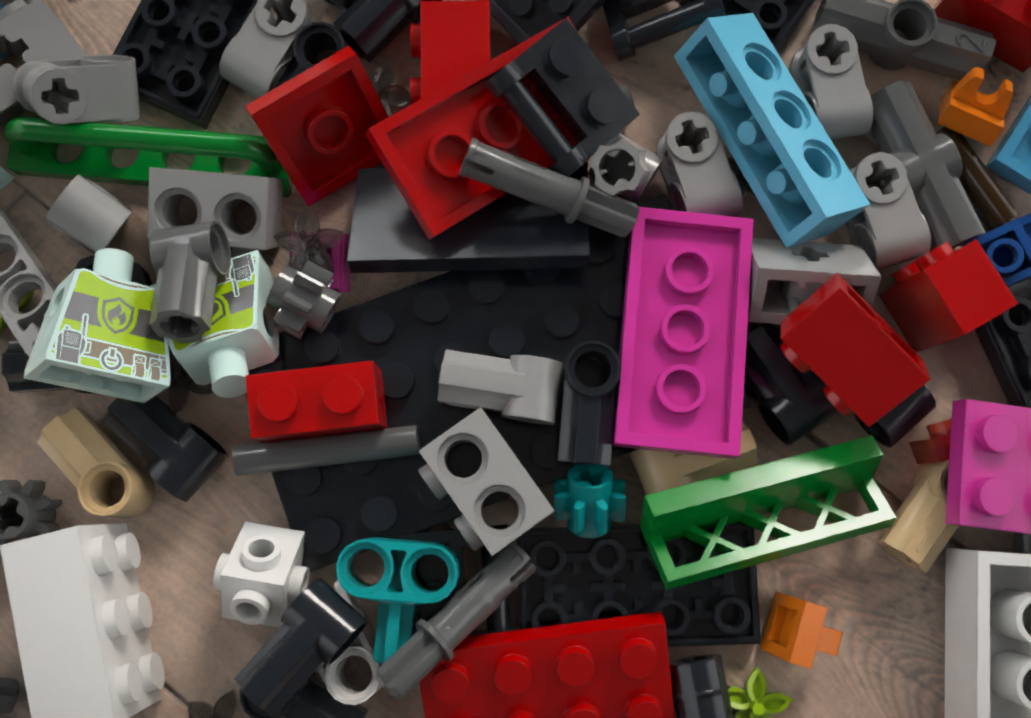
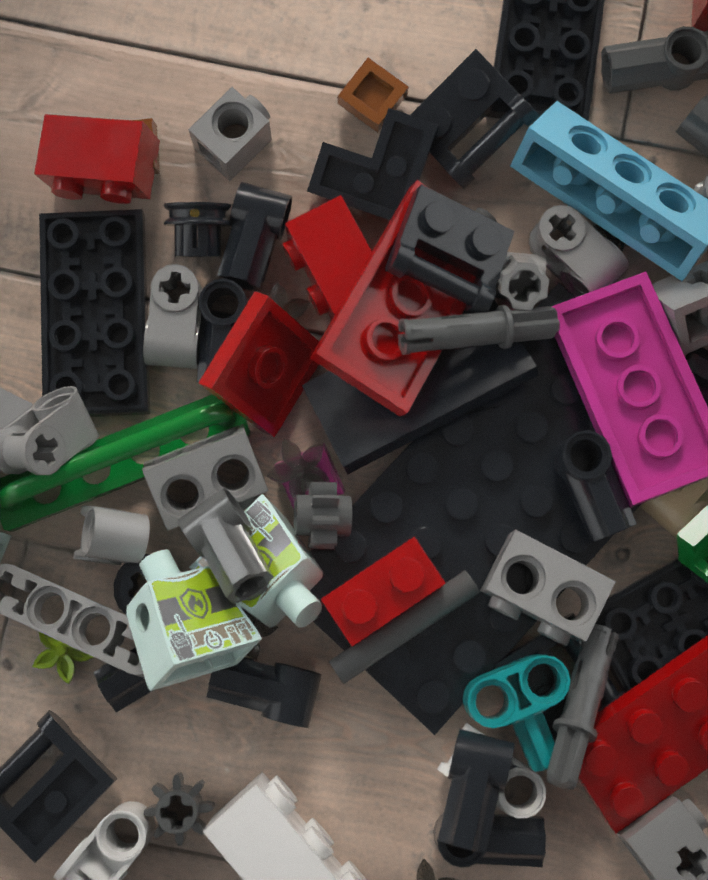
camera: 30 degrees left, 0 degrees up
(93, 464) = (213, 735): tan piece -> none
(263, 587) = (407, 763): white brick -> none
(518, 387) = (528, 500): light grey piece -> none
(589, 500) = (630, 560): teal gear -> none
(834, 84) = (649, 127): light grey piece -> none

